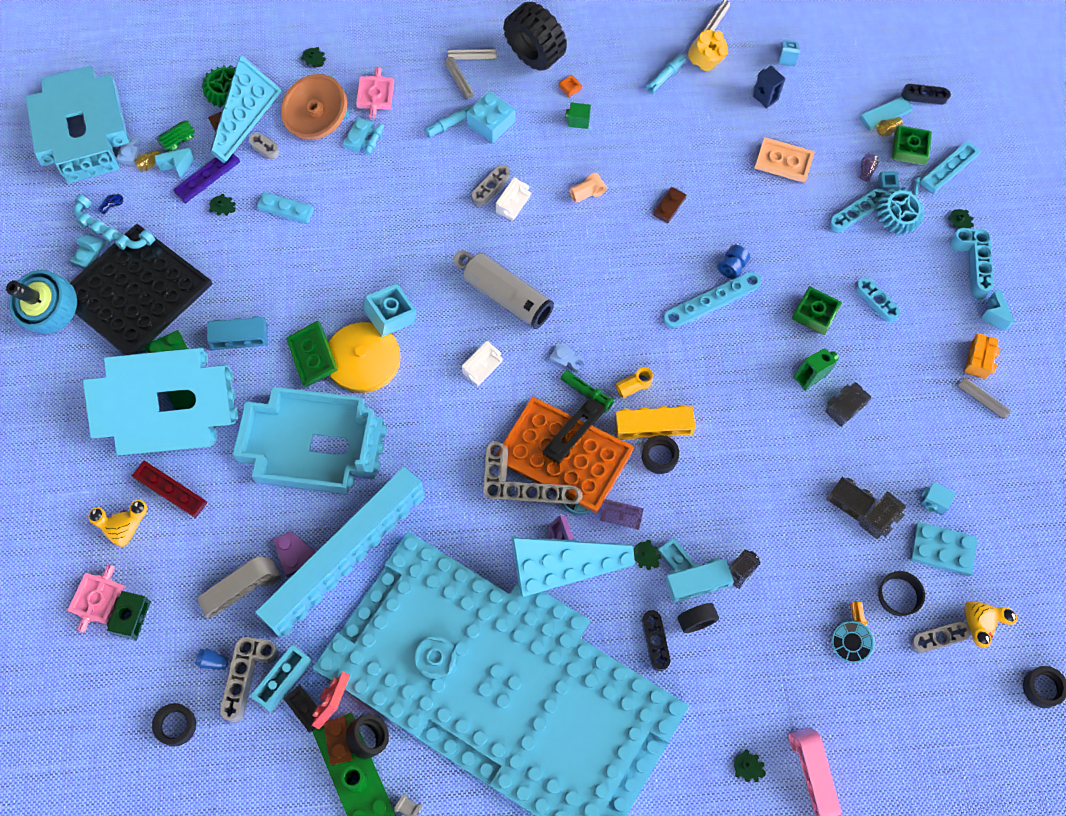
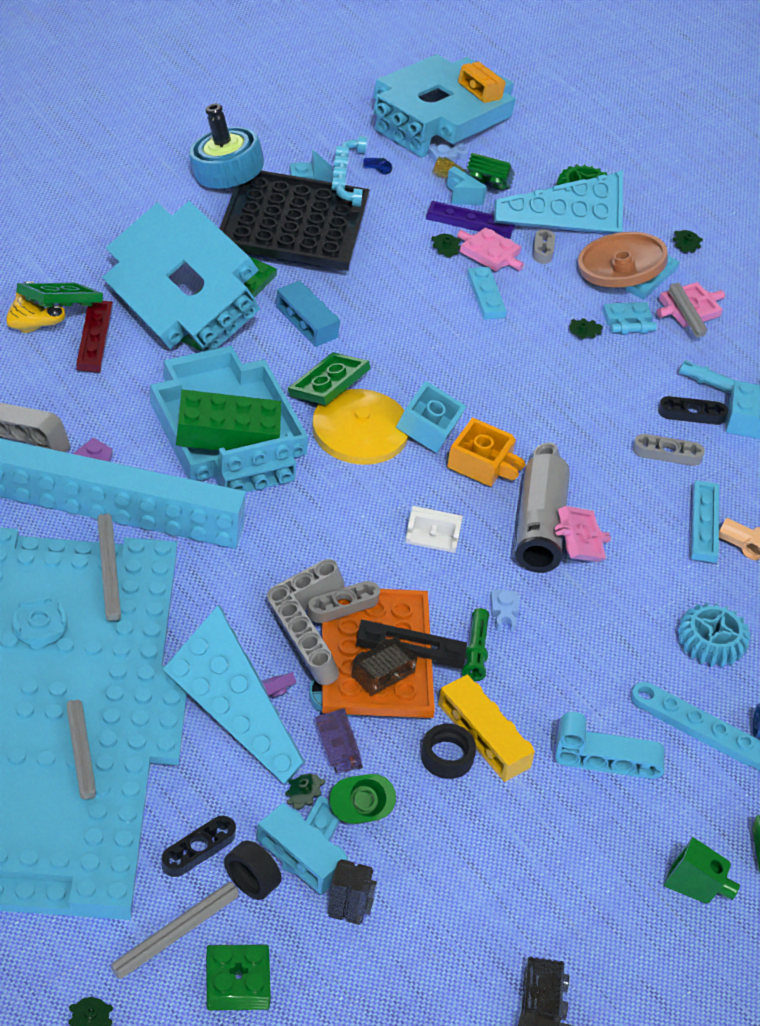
camera: 55 degrees right, 20 degrees down
(85, 86) = (481, 82): none -> light orange brick
(120, 495) = (61, 292): none -> green plate
(245, 180) = (490, 249): none -> bright pink plate
(327, 443) = (225, 420): none -> green brick
(356, 167) = (584, 328): none -> dark green piece
(385, 98) = (688, 310): none -> light grey axle
(412, 588) = (109, 567): none -> light grey axle
(438, 296) = (485, 453): none -> light orange hinge
(466, 157) = (715, 411): none -> black beam
(513, 199) = (667, 474): white hinge -> none
(523, 459) = (326, 608): none -> light grey beam
(539, 277) = (582, 534): none -> bright pink plate
(559, 680) = (81, 749): none -> light grey axle
(562, 201) = (705, 522): none -> medium azure plate
(590, 458) = (383, 665): none -> clear smoke brick
(633, 383) = (531, 689): yellow piece -> none
(650, 260) = (727, 644): none -> medium azure gear
(677, 524) = (362, 798): none -> green piece
(699, 374) = (606, 752): none -> medium azure beam
(710, 685) = (174, 930): none -> light grey axle
(774, 659) = (229, 993): none -> green brick
(847, 404) = (679, 936): clear smoke brick -> none

